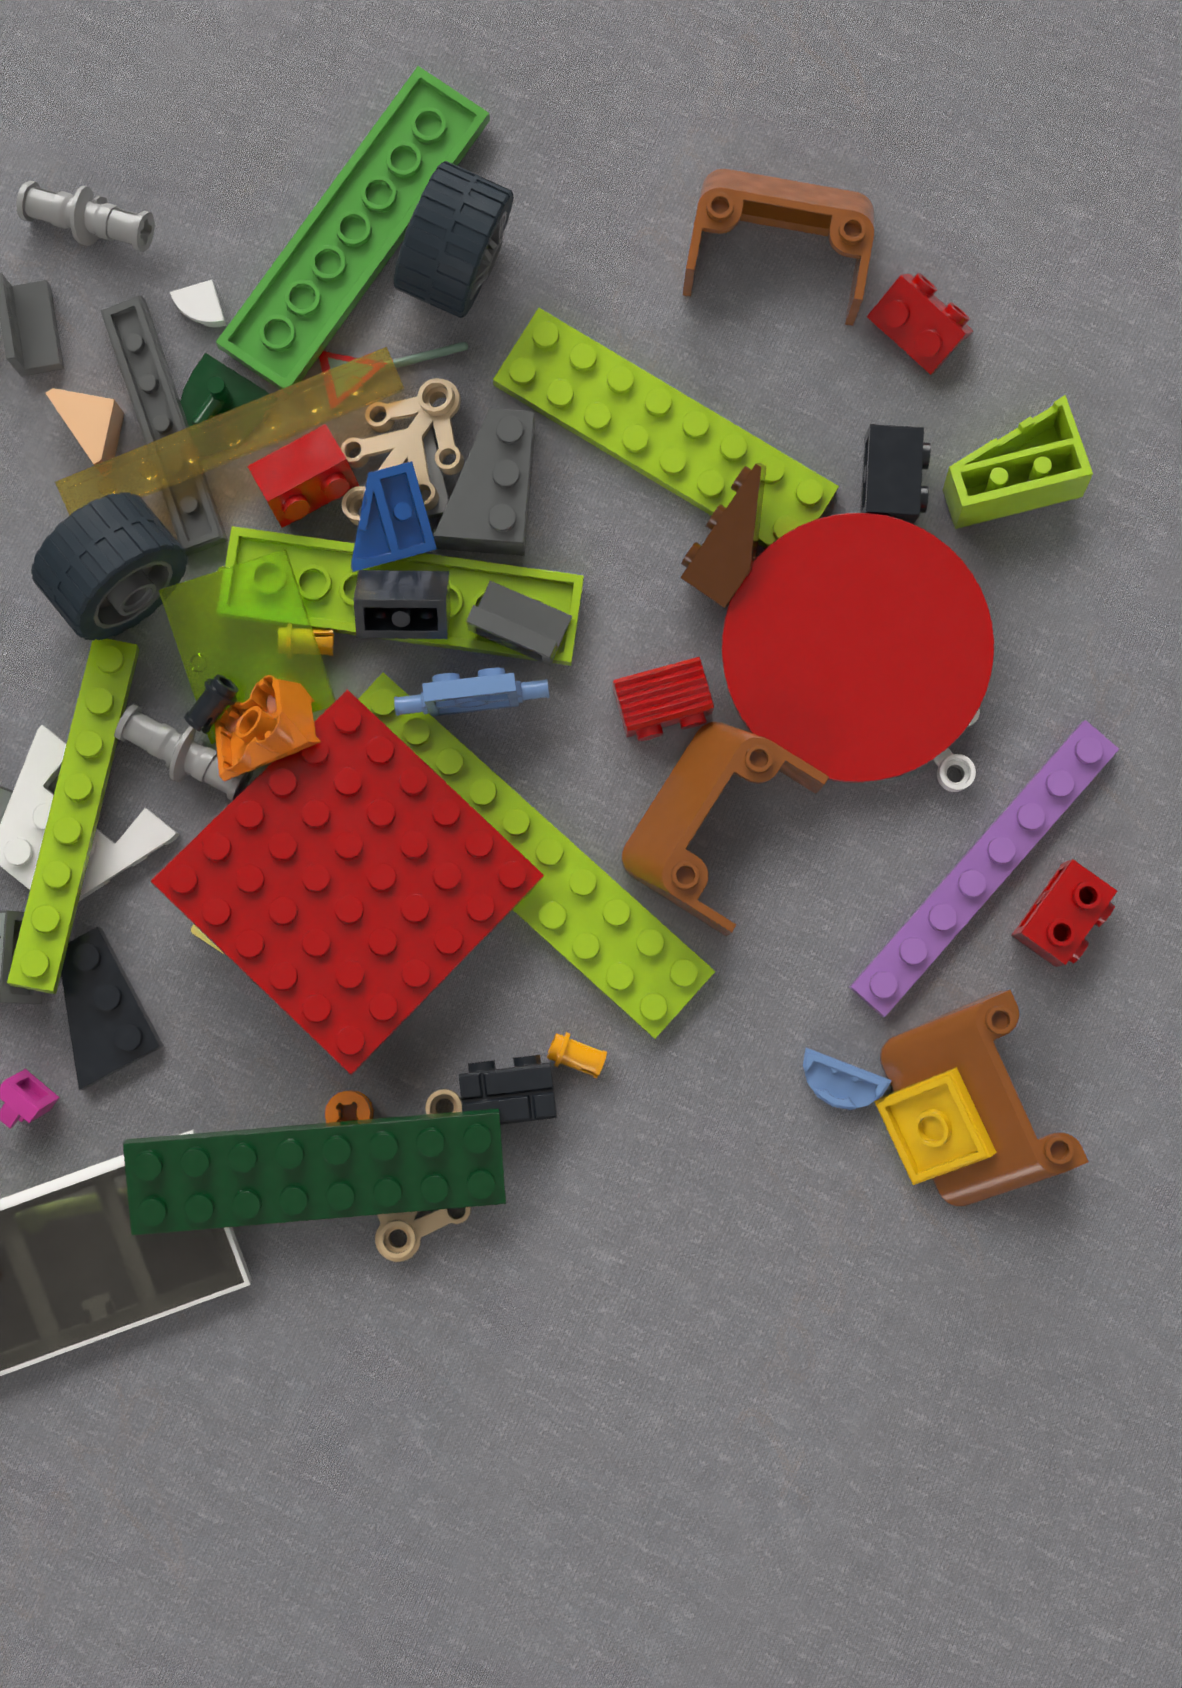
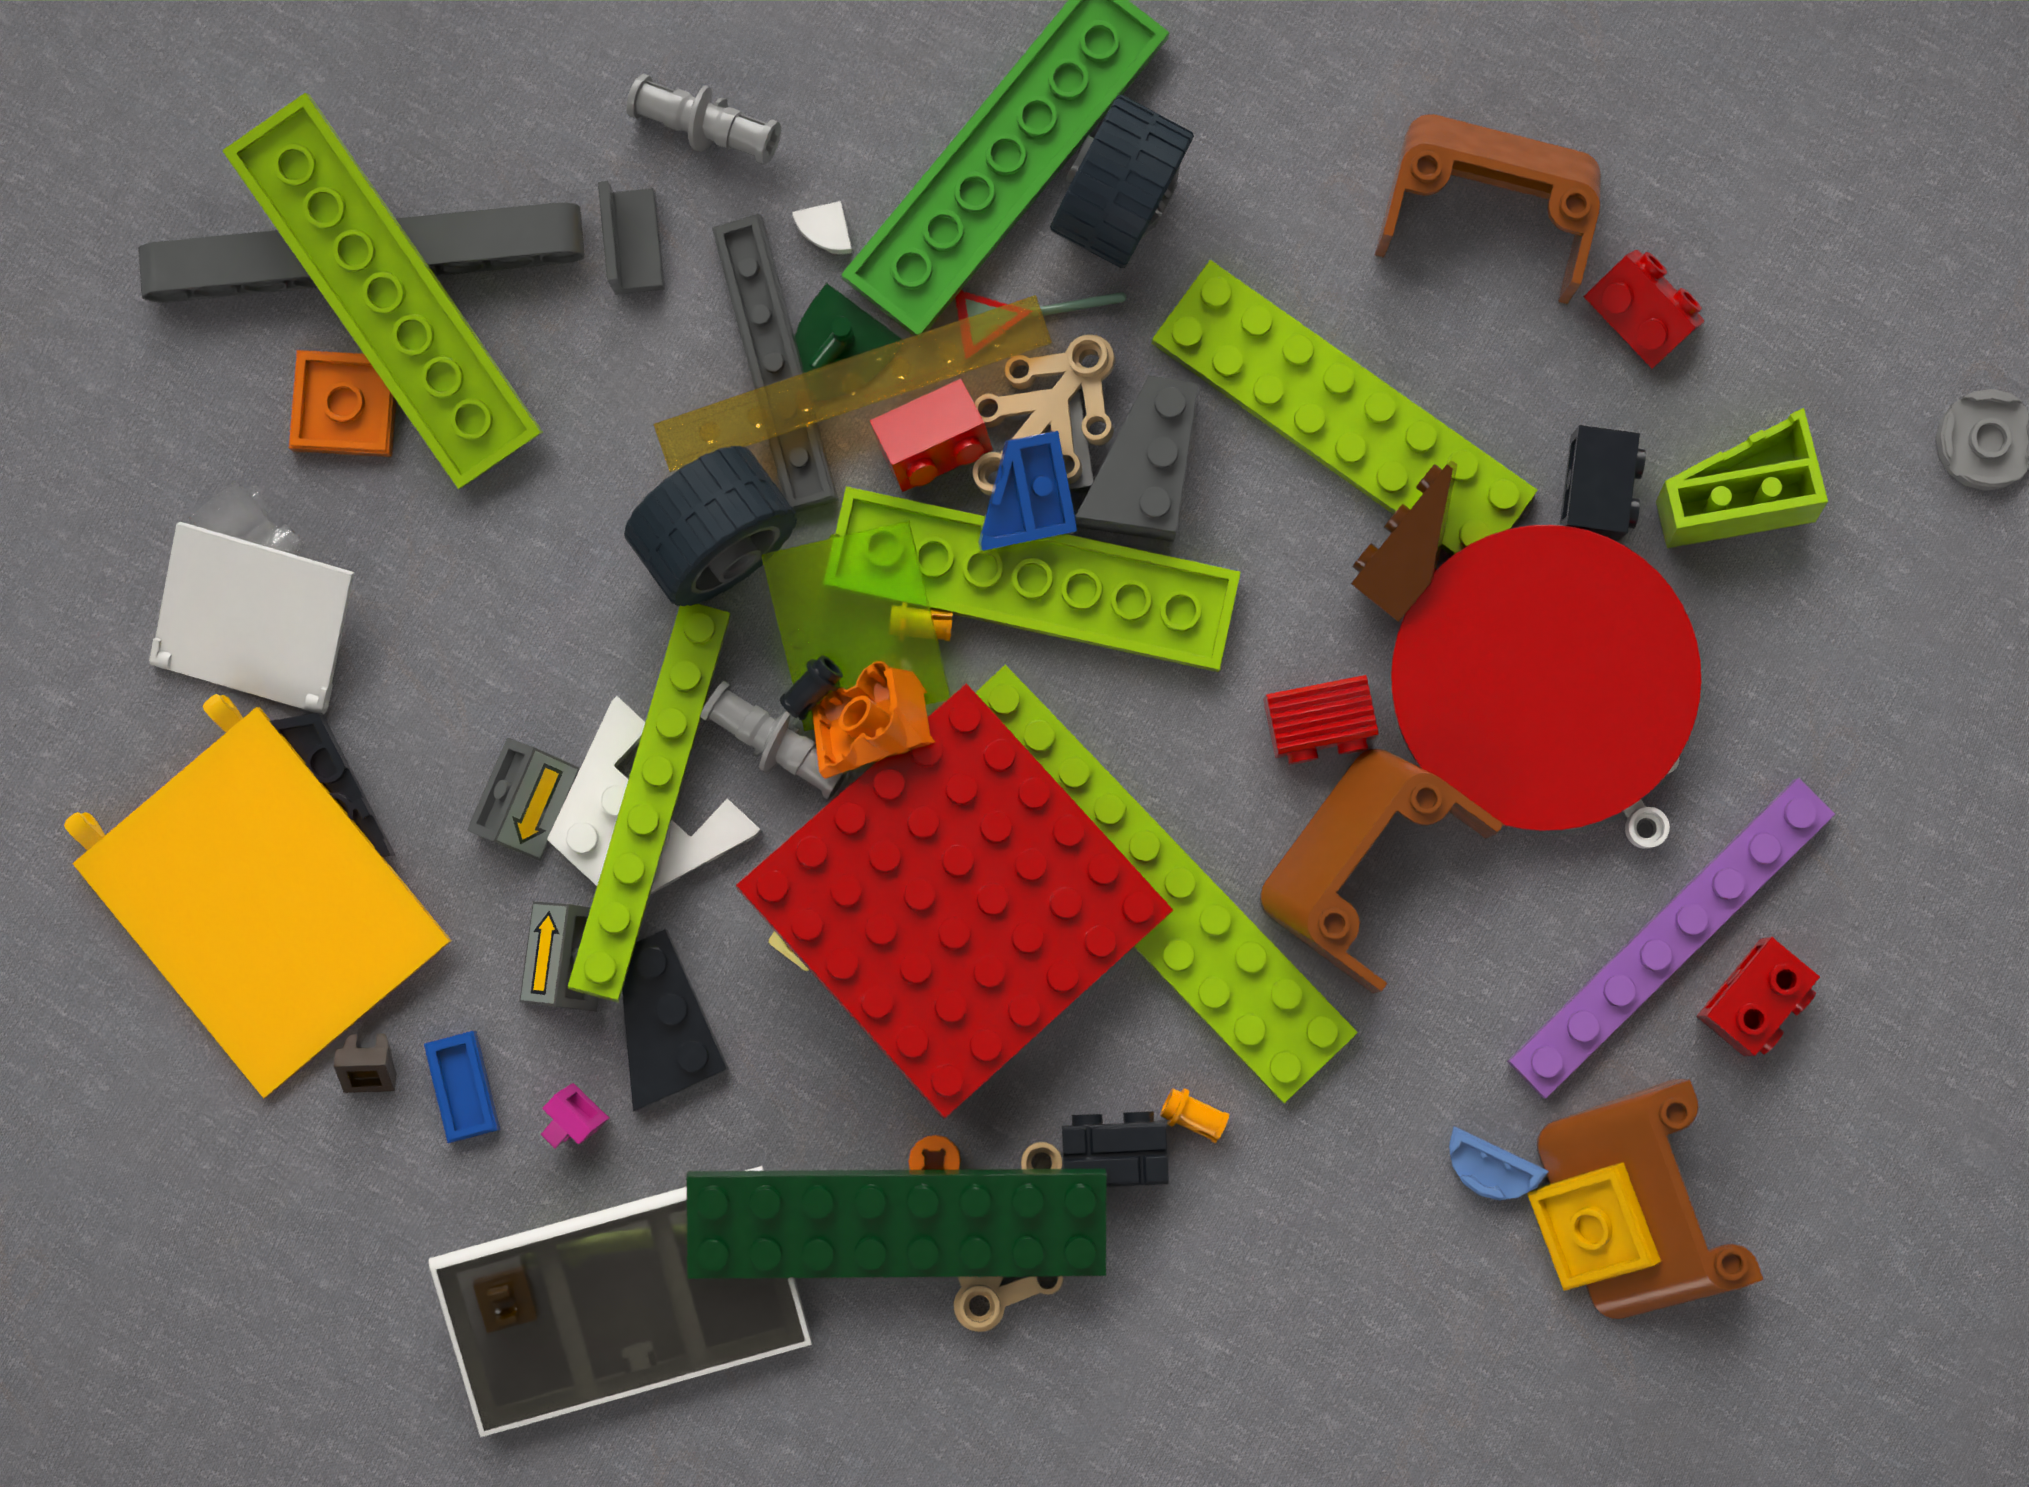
camera: 10 degrees right, 0 degrees up
(92, 420) = (695, 355): light nougat slope -> none
(402, 604) = (1036, 593): black brick -> none
(488, 691) = (1126, 696): medium blue plate -> none
(519, 623) = (1164, 621): dark grey panel -> none

